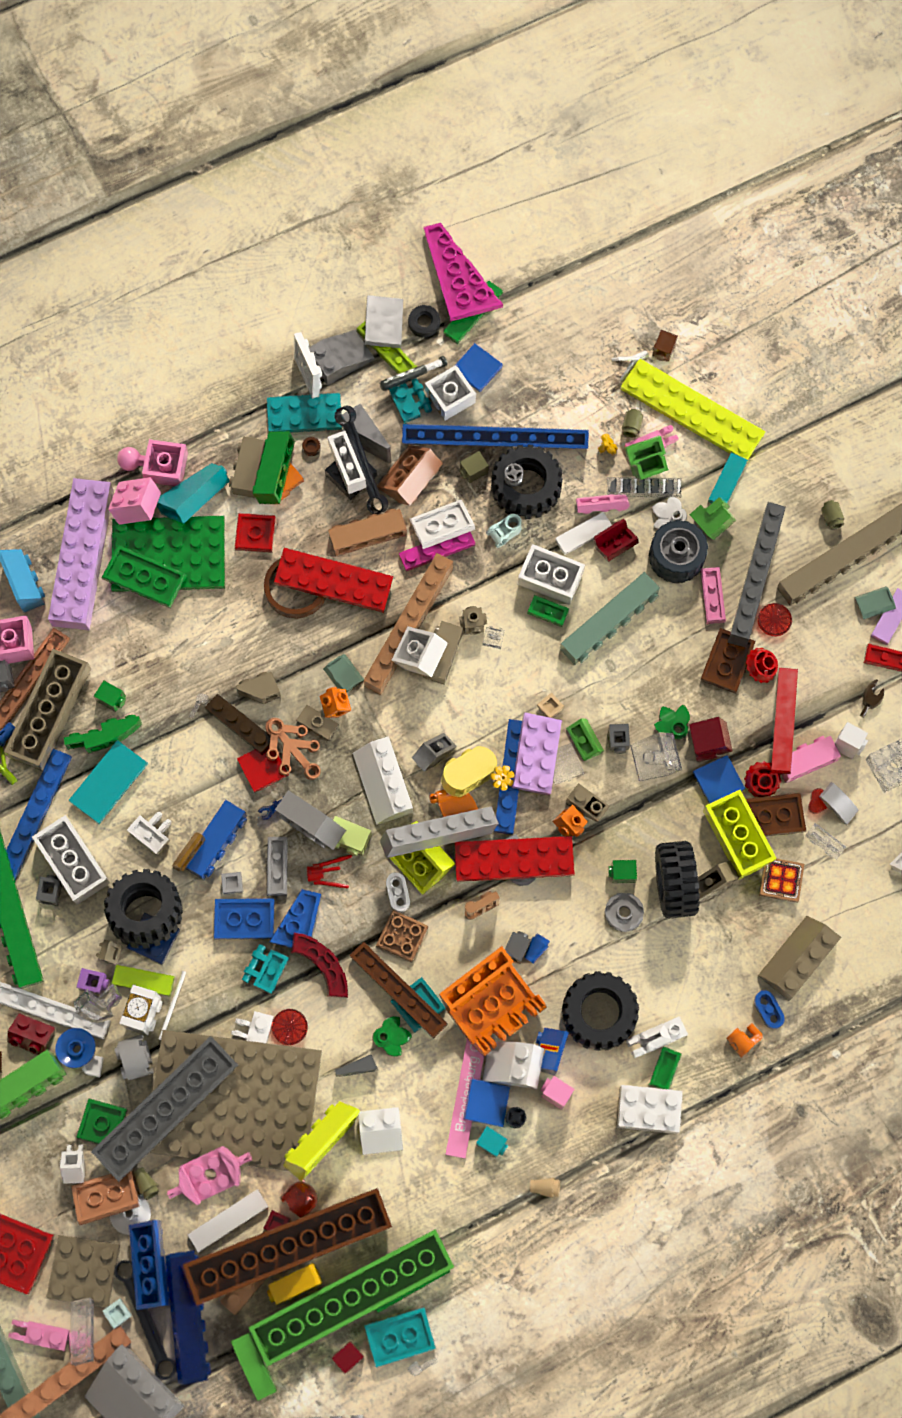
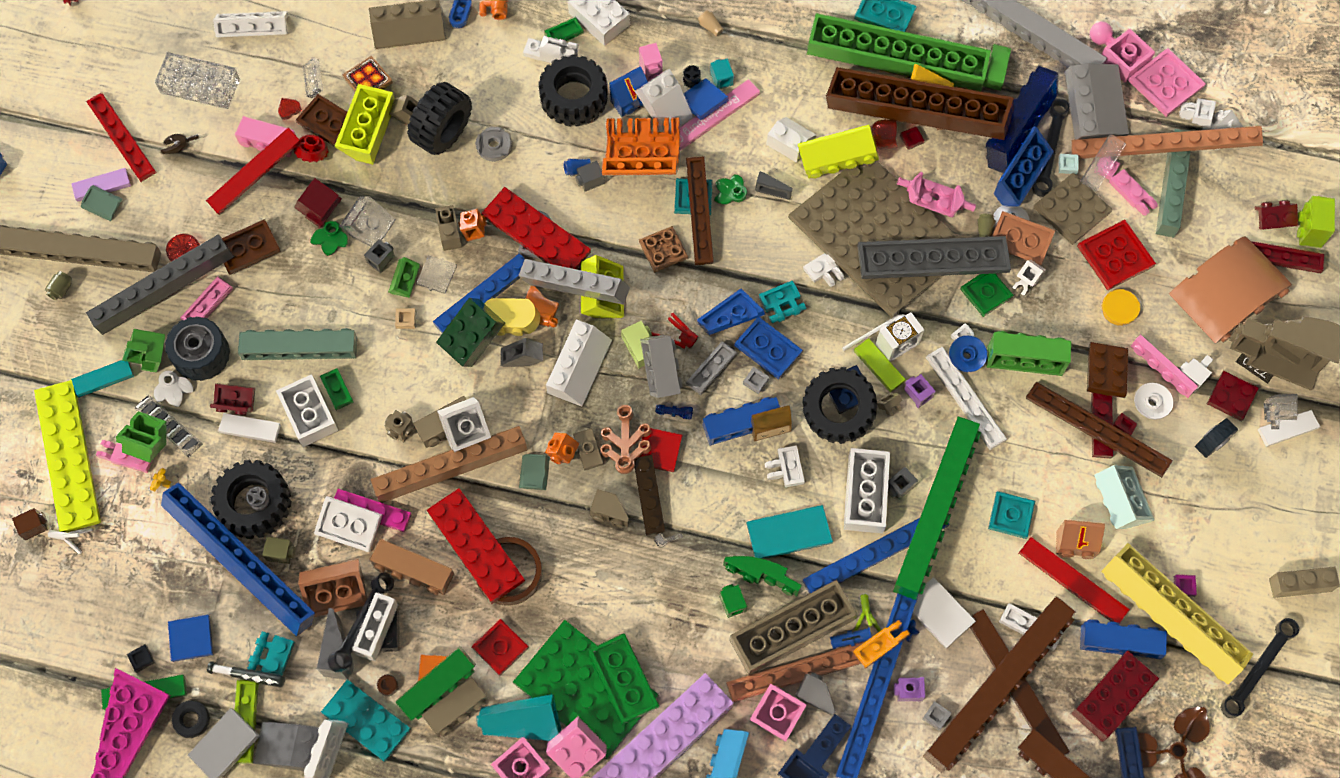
camera: 140 degrees left, 5 degrees down
(29, 1034) = (994, 391): dark red bracket -> none
(96, 1008) = (929, 365): clear brick -> none
(134, 1057) = (930, 308): light grey brick -> none
(228, 1220) = (944, 164): white tile -> none
(289, 1026) = (797, 251): clear red wheel -> none
(325, 961) = (734, 271): dark red tile -> none
(347, 1357) = (932, 22): dark red panel -> none
(398, 893) = (638, 279): white plate -> none
(450, 392) = (234, 627): white brick -> none
(484, 729) = (470, 332): none -> dark green brick
(487, 902) = (584, 213): medium nougat plate -> none
(493, 637) = (396, 401): clear tile -> none
(497, 330) = (140, 658): none -> black tile
(502, 533) = (309, 478): light aqua piece -> none
(502, 777) = (490, 290): yellow plant -> none
(536, 754) = (449, 291): lavender plate -> none
(602, 503) = (213, 437): bright pink hinge -> none
(623, 871) = (468, 166): green brick -> none
(632, 423) = (122, 481): olive brick -> none
(718, 779) = (341, 174): blue tile -> none
(762, 665) = (226, 222): red piece -> none
(839, 802) = (277, 91): light grey slope -> none
(851, 740) = (225, 119): white brick -> none

